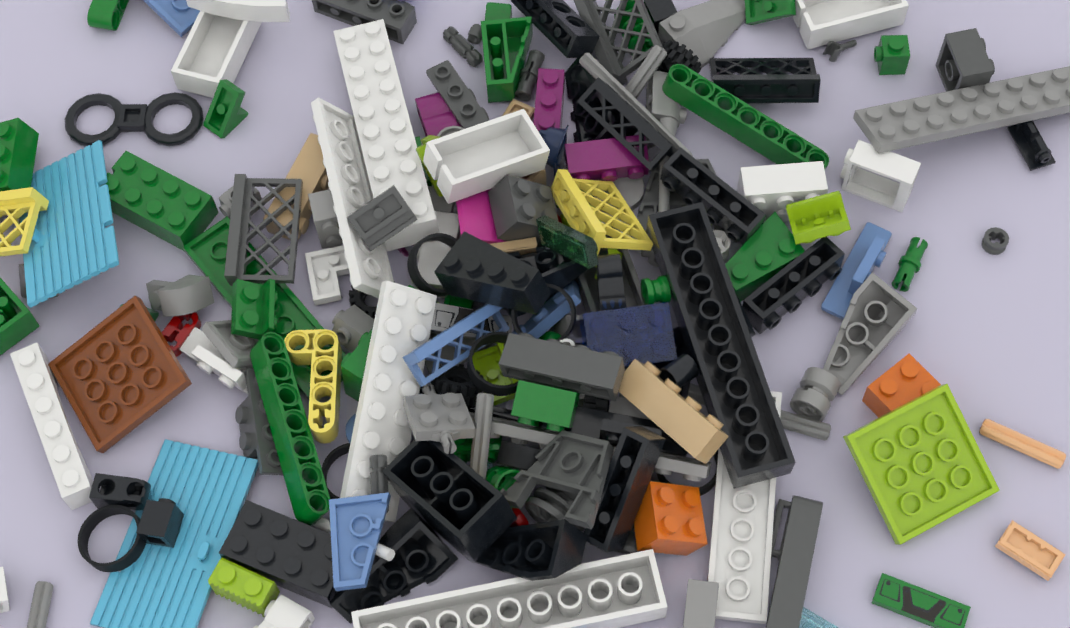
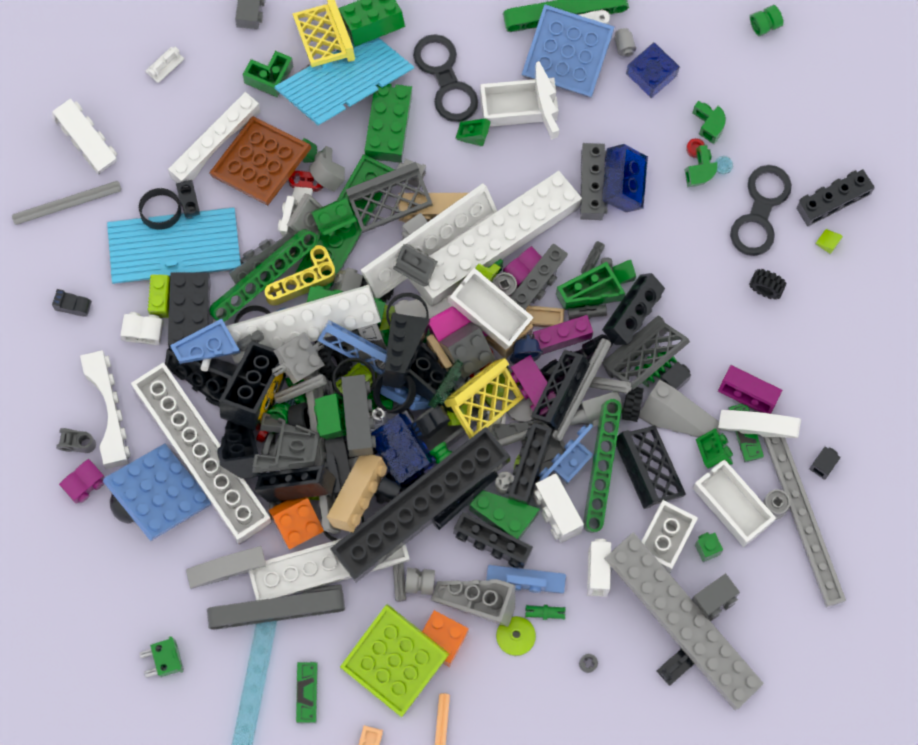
camera: 60 degrees right, 10 degrees up
(160, 522) = (178, 231): black brick -> none
(323, 271) = (378, 246): white plate -> none
(716, 150) = (572, 460): none -> medium blue bracket
(818, 217) = (540, 537): lime bracket -> none
(834, 49) = (700, 508): dark grey hand -> none
(858, 83) = (668, 533): none -> white brick
(931, 322) = (520, 645): none -> lime dish

